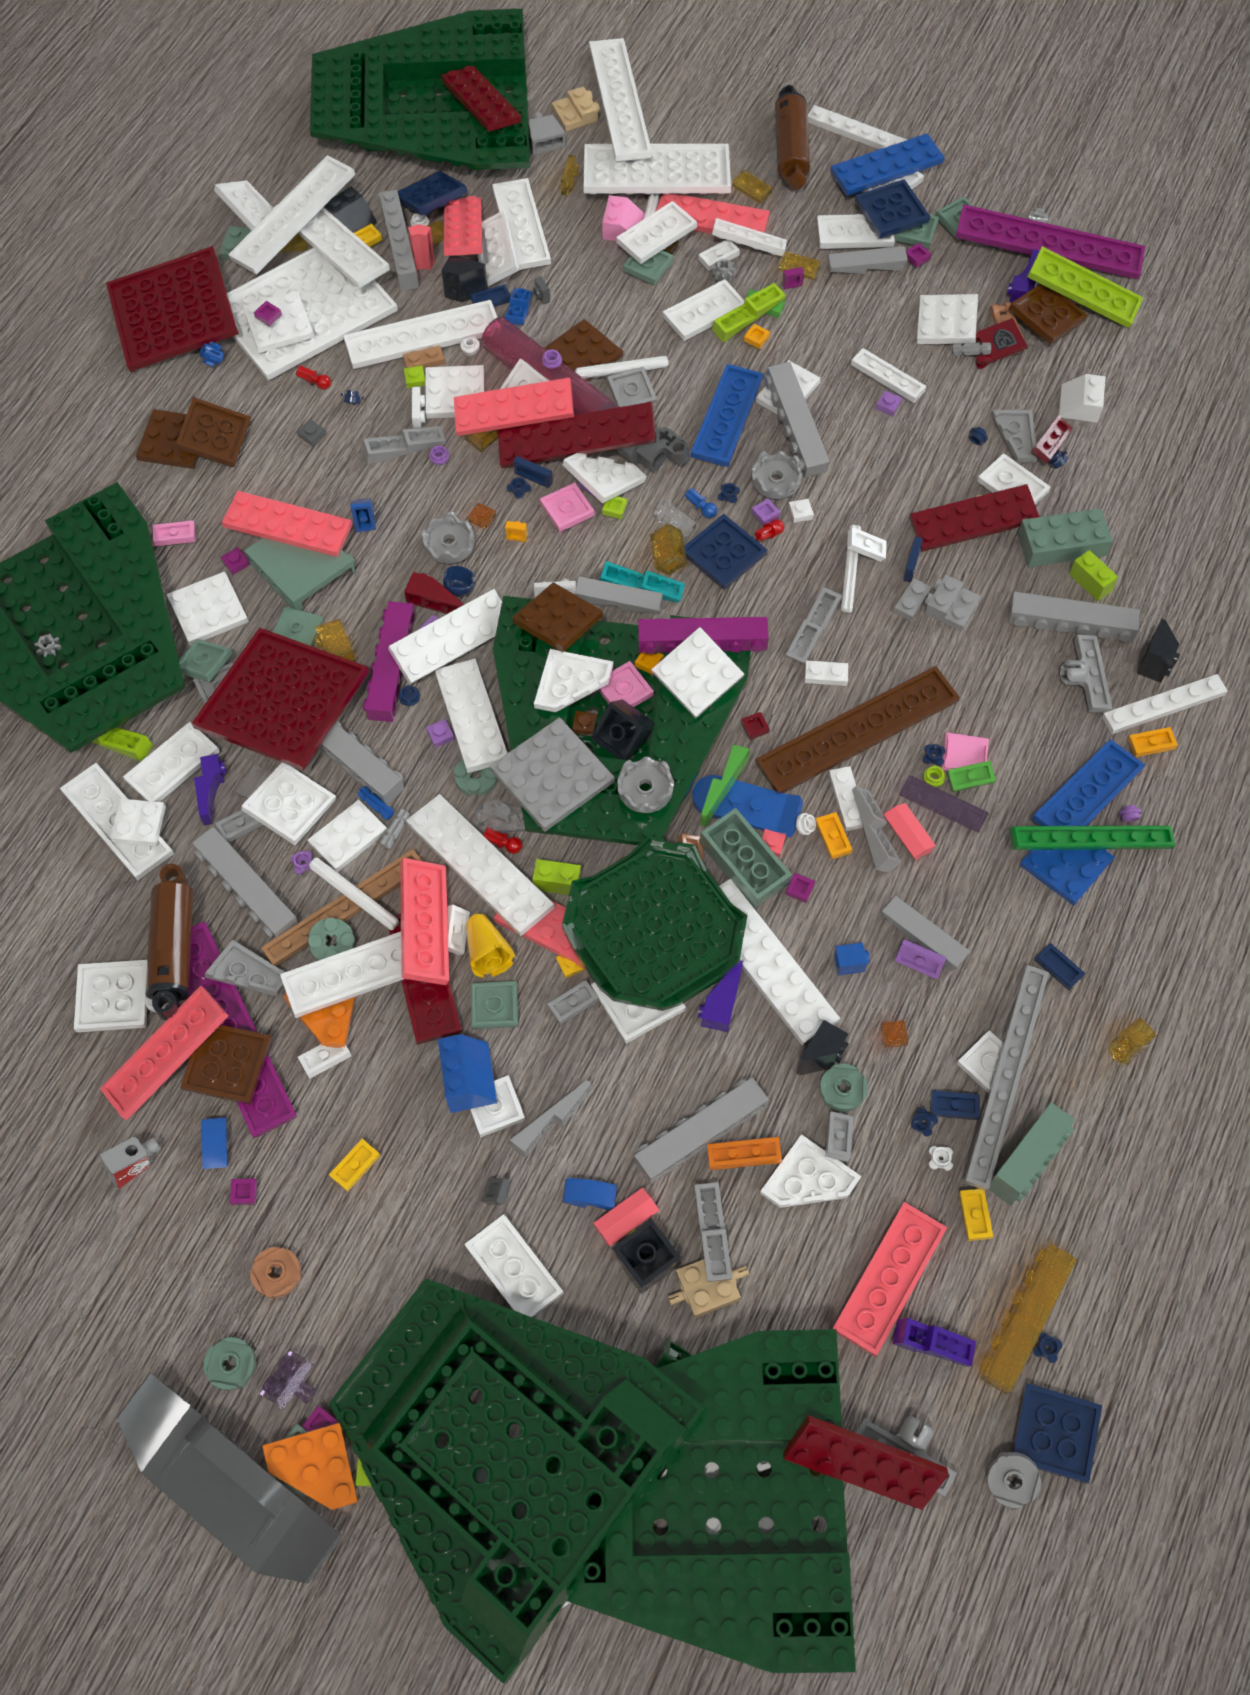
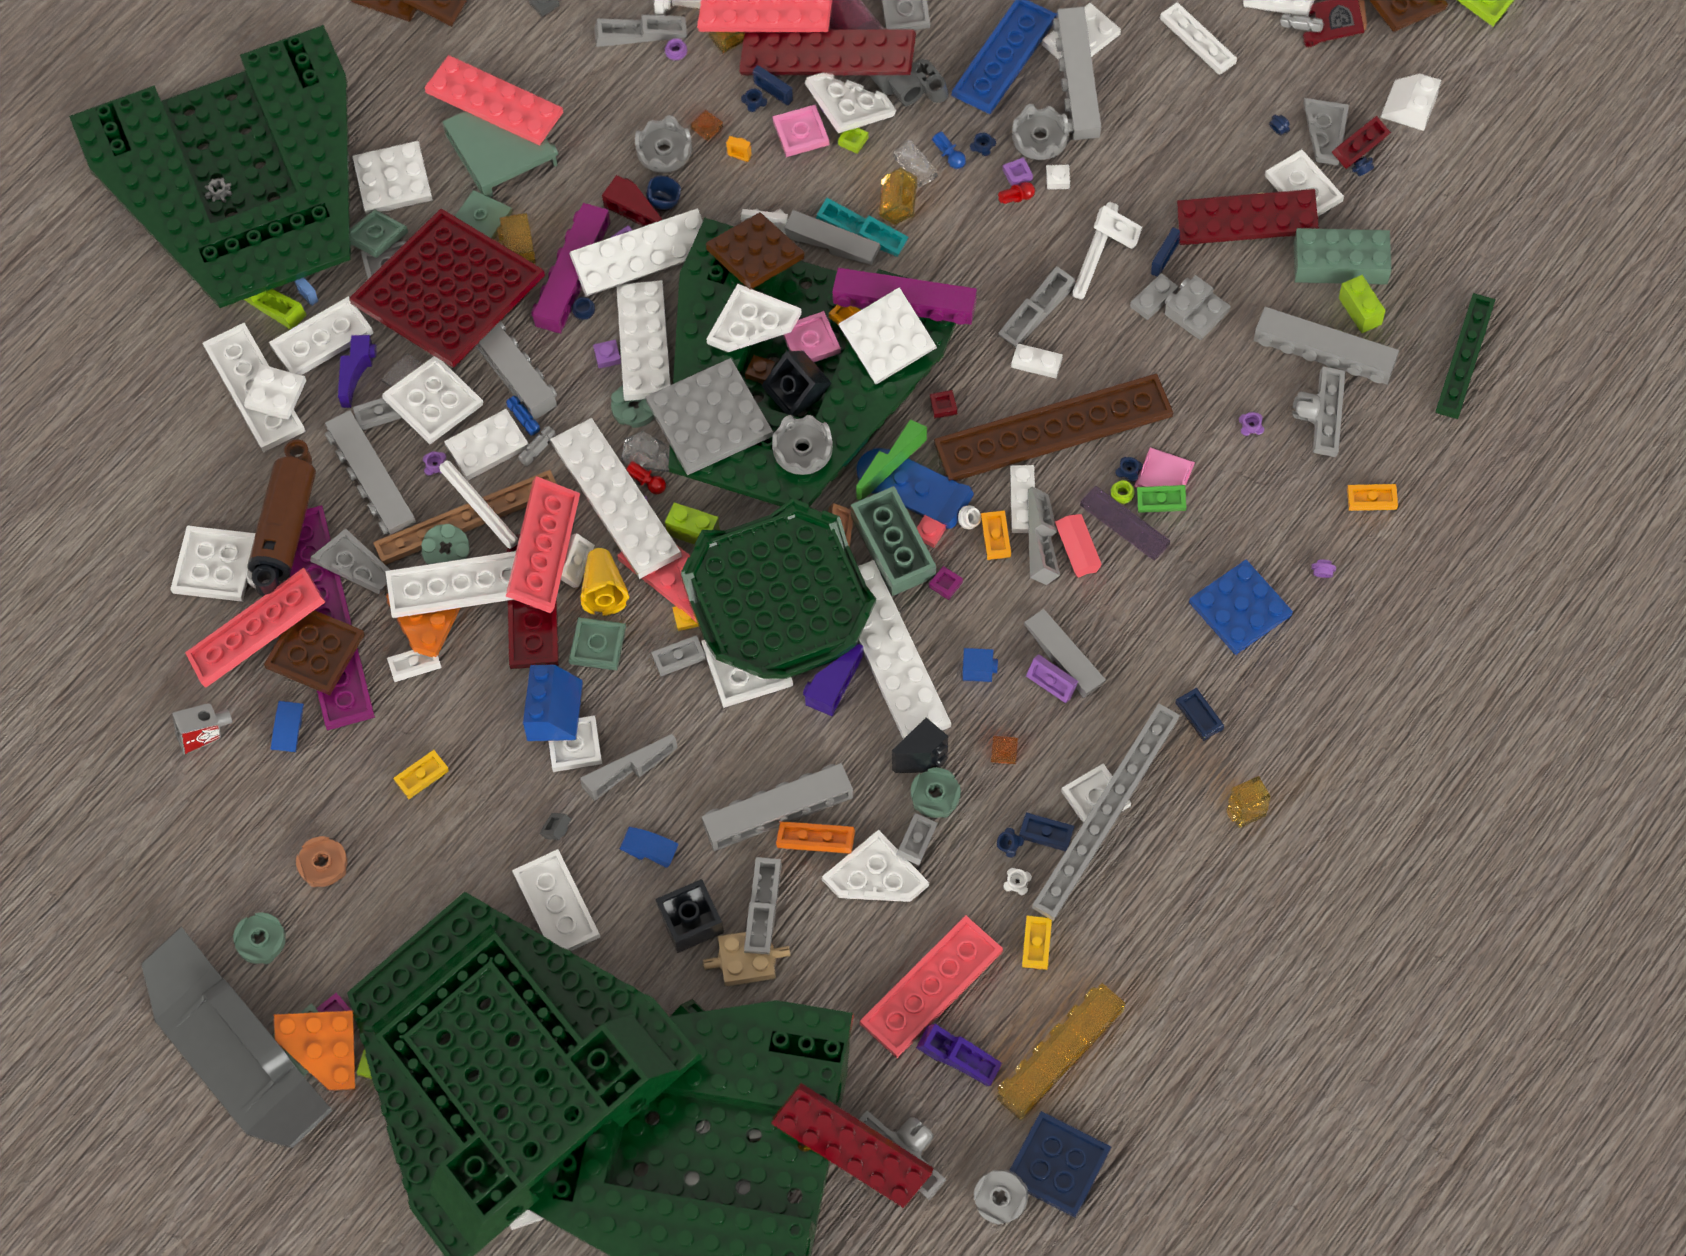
camera: 15 degrees right, 0 degrees up
(149, 723) = (306, 291): none -> medium blue tile
(174, 533) = (373, 90): bright pink plate -> none
(235, 561) = (431, 131): magenta plate -> none
(243, 1192) = (306, 779): magenta plate -> none
(288, 1381) = (312, 963): clear purple plate -> none
(363, 515) = (578, 102): blue slope -> none
(625, 1217) = (679, 874): coral piece -> none
(724, 551) = (960, 208): dark blue plate -> none
(888, 403) = (1190, 70): medium lavender plate -> none
(1029, 691) = (1253, 418): none -> medium lavender plate
(1032, 1155) = (1108, 893): sand green brick -> none
(1054, 1344) = (1074, 1076): dark blue plate -> none
(1090, 788) = (1283, 537): blue plate -> none
(1091, 837) = (1269, 585): green tile -> none
(1160, 654) = (1405, 402): black slope -> none
(1164, 704) = (1400, 458): white plate -> none
(1193, 605) = (1465, 356): none -> dark green plate

